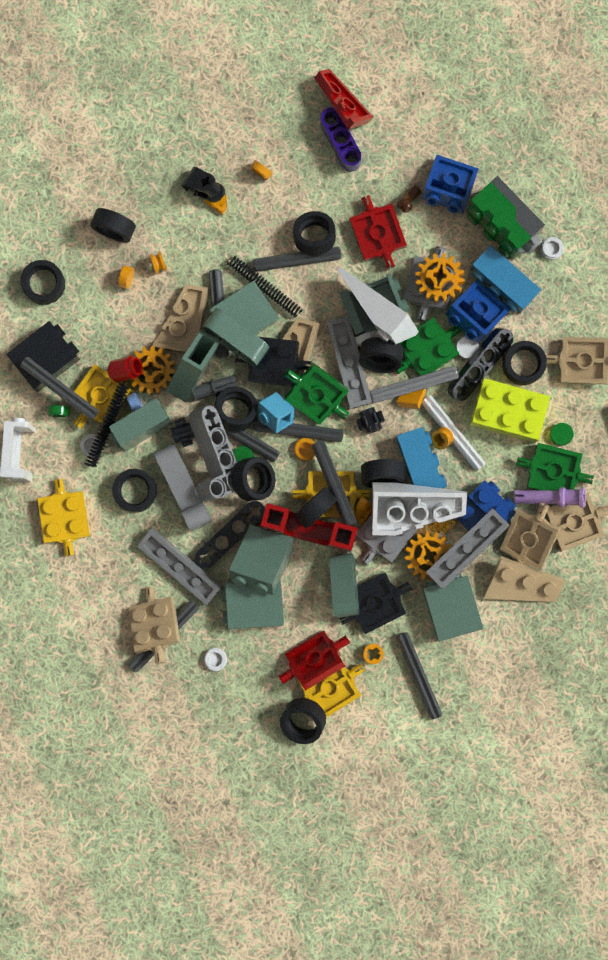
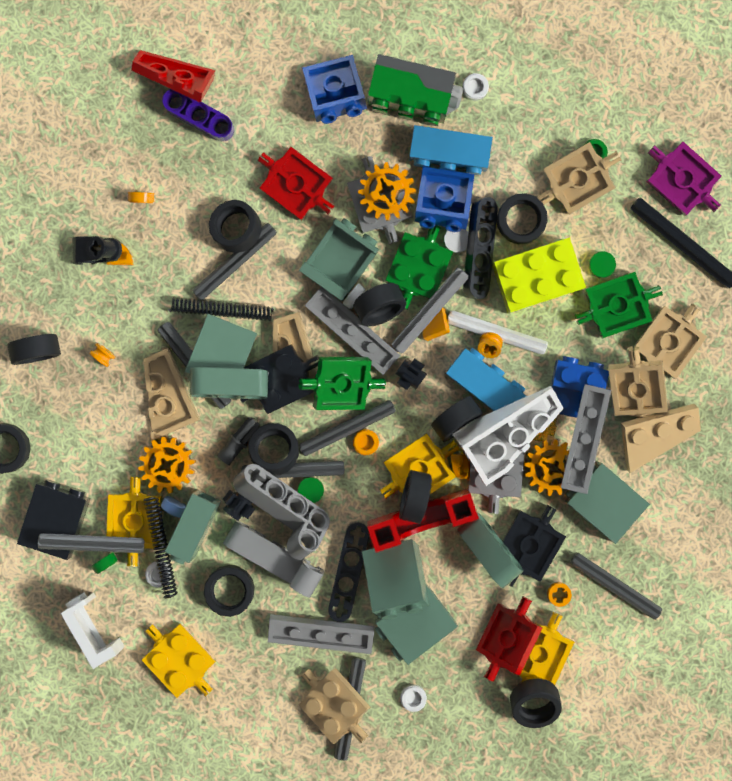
camera: 35 degrees left, 5 degrees up
(125, 369) = (141, 483): red brick -> none
(126, 277) = (80, 390): light orange tile -> none
(193, 365) = (205, 437): sand green brick -> none
(240, 482) = (323, 515): black tyre -> none
(275, 412) = (314, 427): medium azure brick -> none
(334, 483) = (416, 458): dark grey axle -> none
(388, 318) = (358, 267): white wedge -> none
(404, 202) = (302, 137): reddish brown arm -> none
(561, 497) = (642, 328): lavender pin -> none

